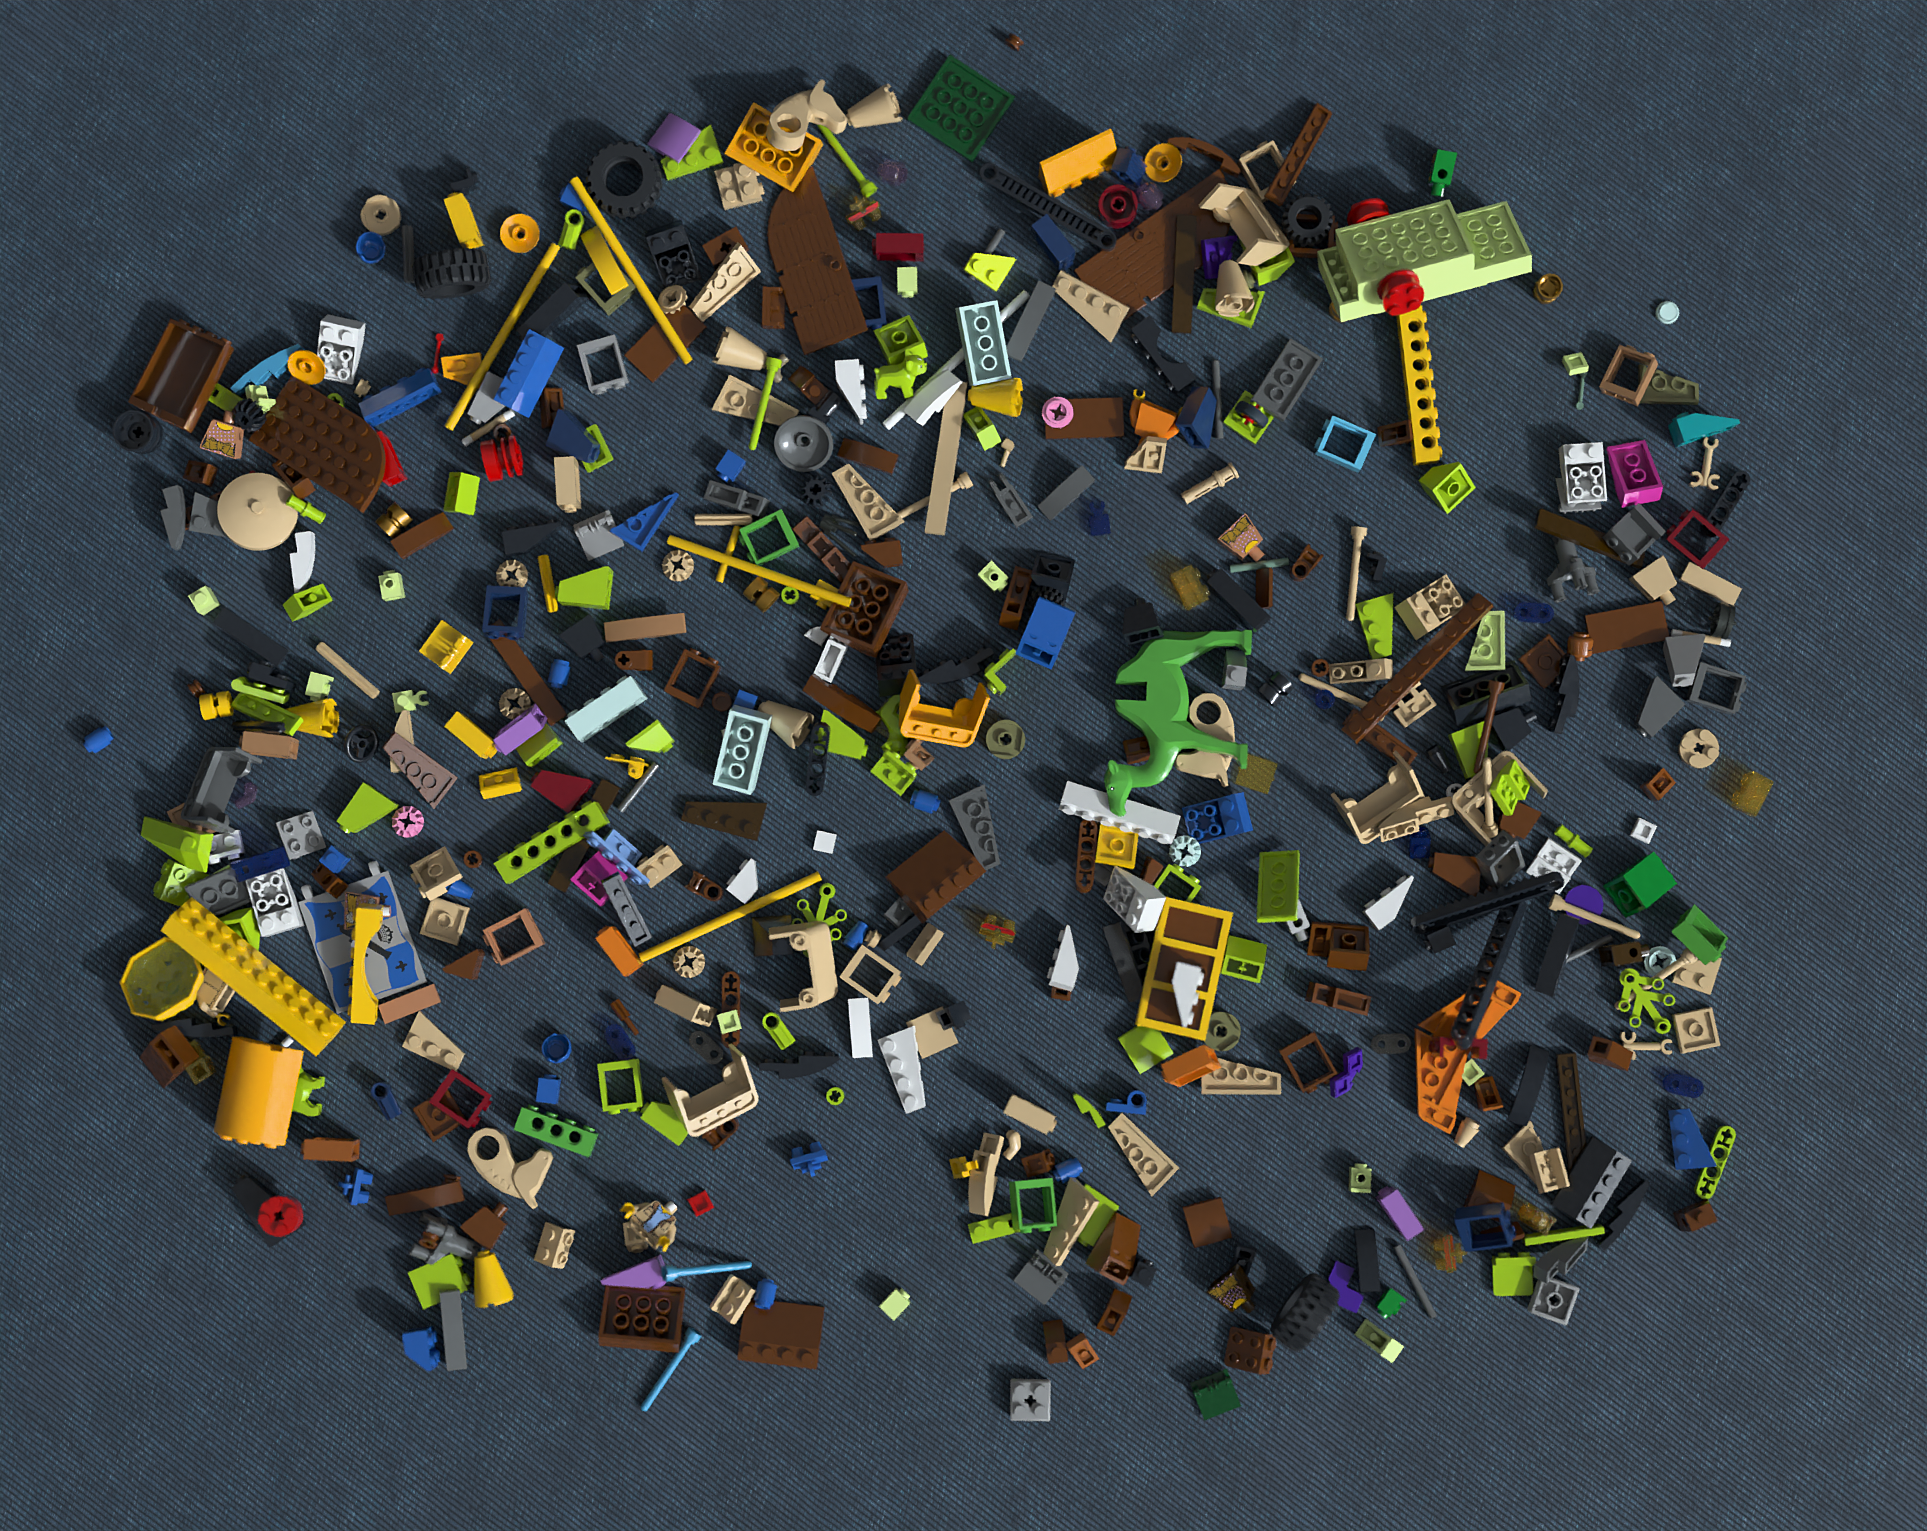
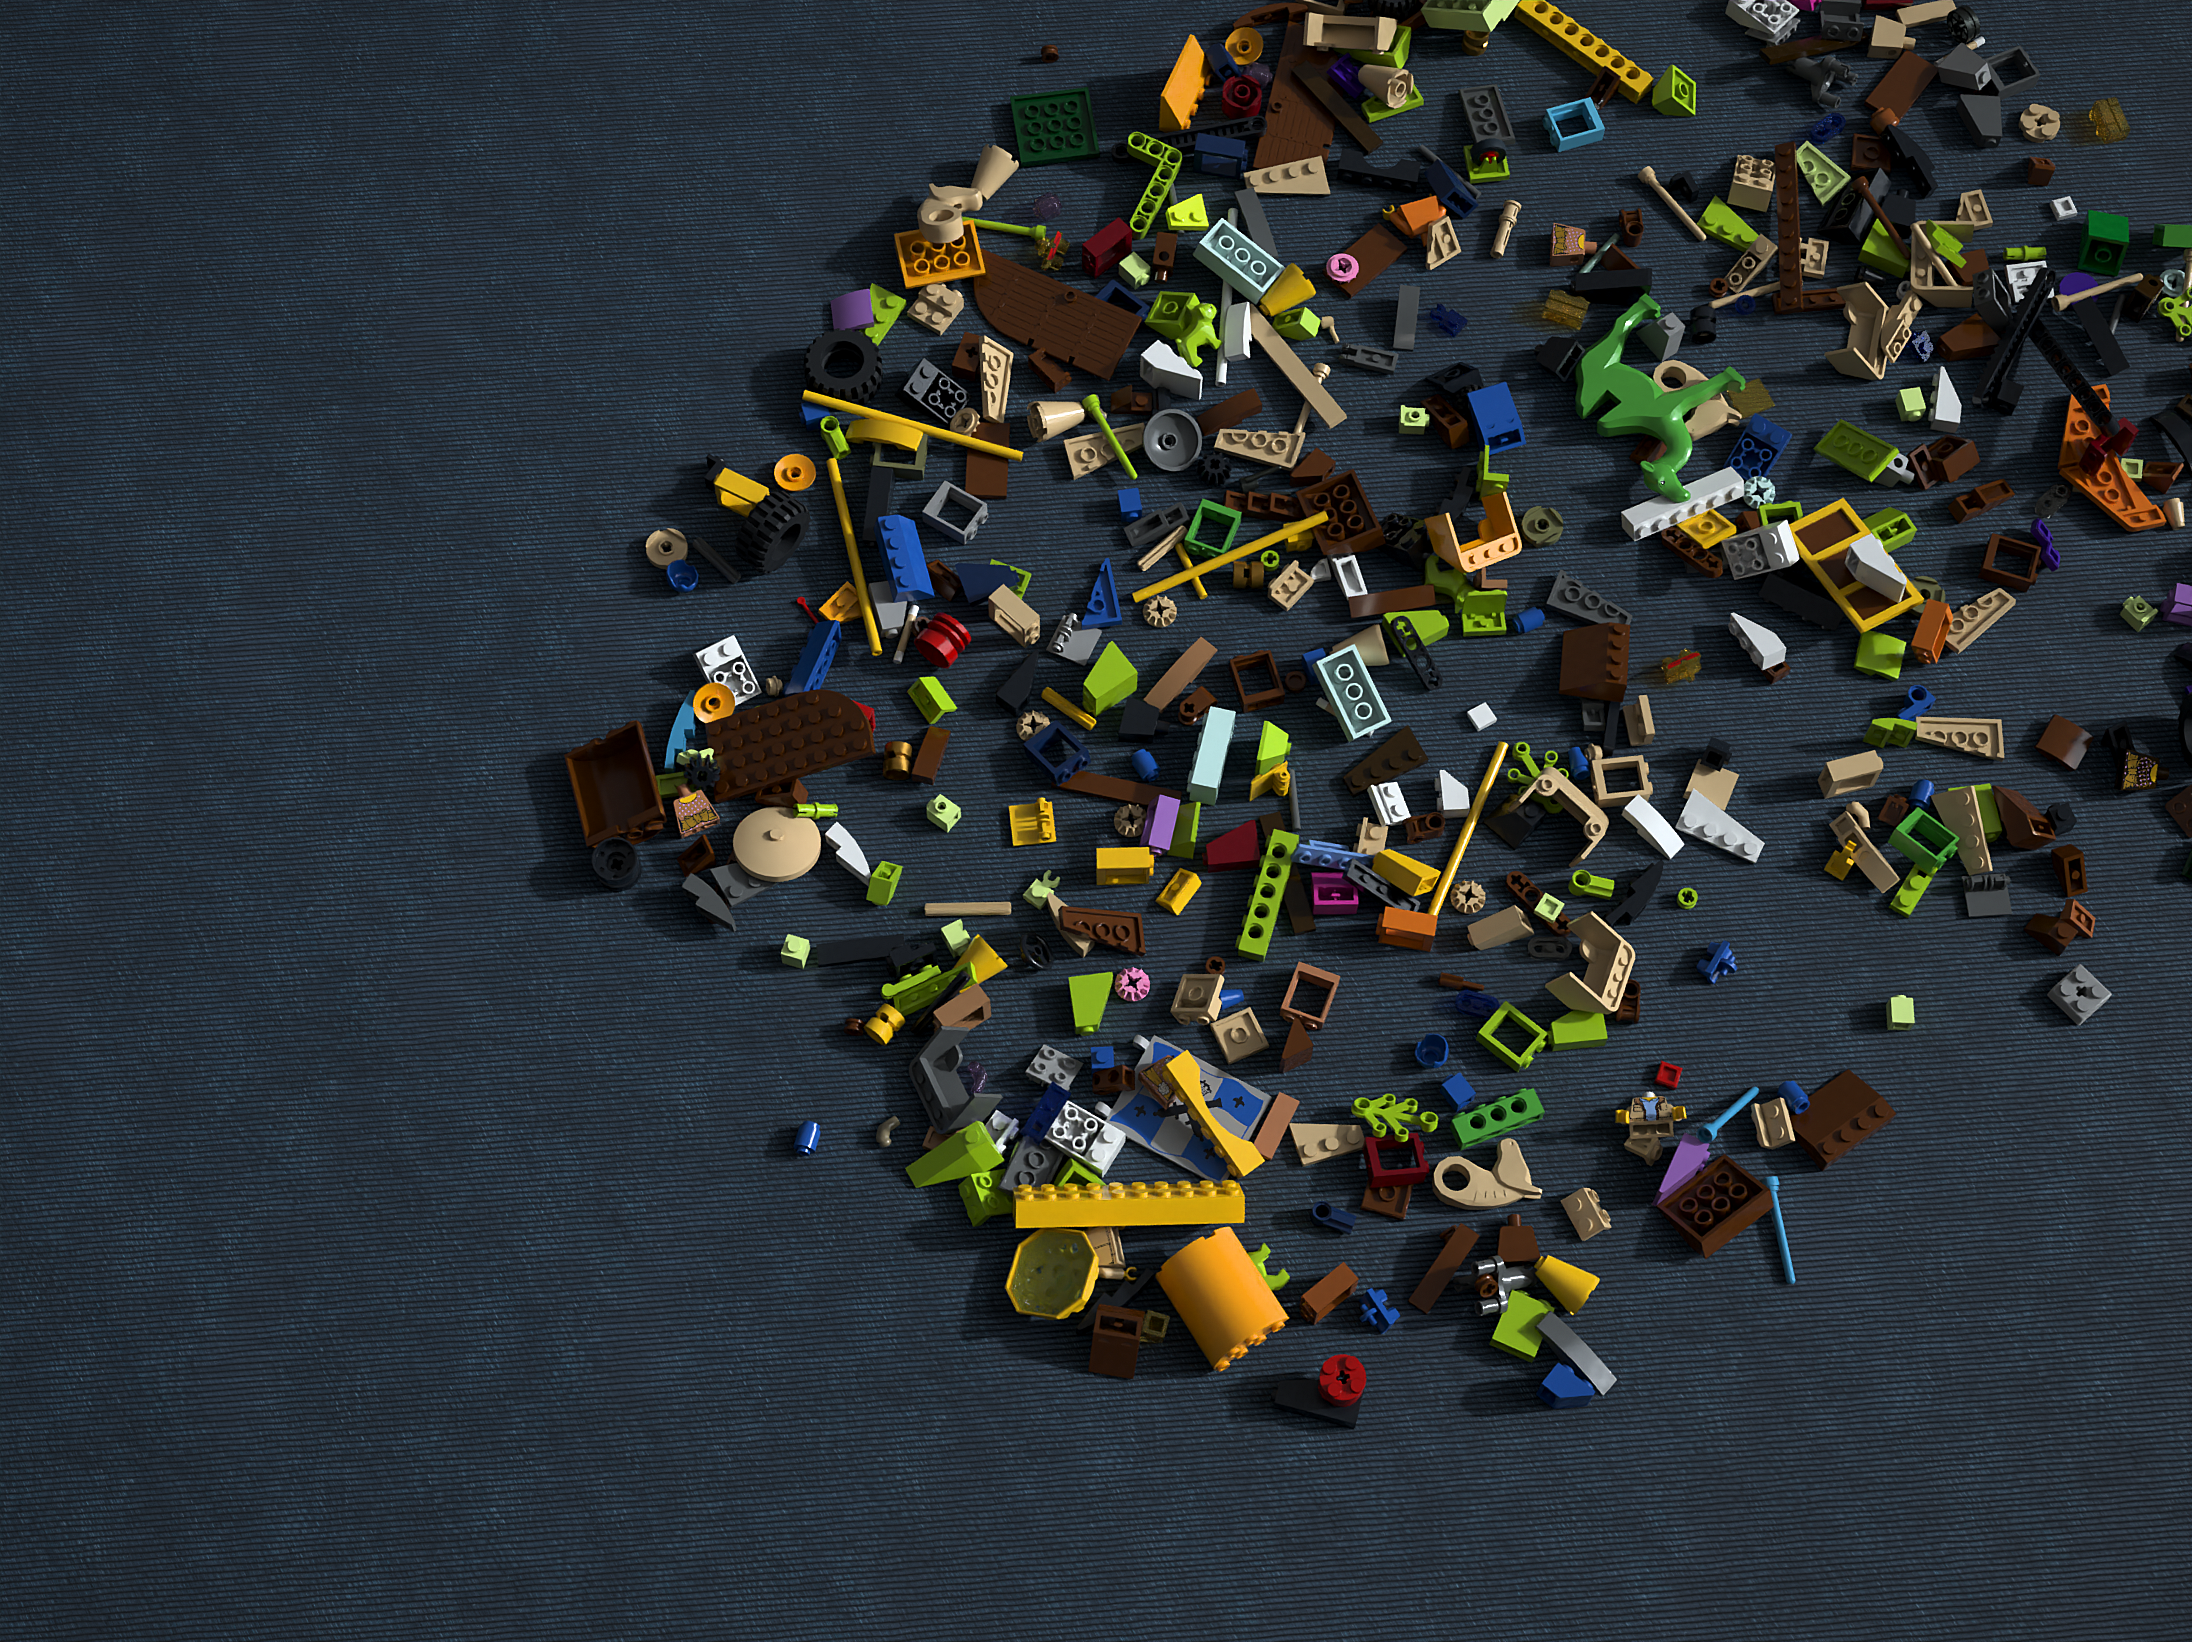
camera: 45 degrees left, 20 degrees down
(154, 777) = (884, 1129): none -> dark tan arm
(486, 1067) = (1392, 1114): none -> lime plant
(656, 910) = (1405, 872): none -> yellow slope
(697, 849) = (1388, 803): none -> white plate
(783, 628) = (1289, 586): none -> tan bracket
(943, 289) = (1164, 256): none -> reddish brown torso
(985, 224) = (1156, 184): none -> lime beam
(1363, 883) = (1910, 404): none -> yellowish green brick
(1569, 775) = (1974, 208): none -> tan wing

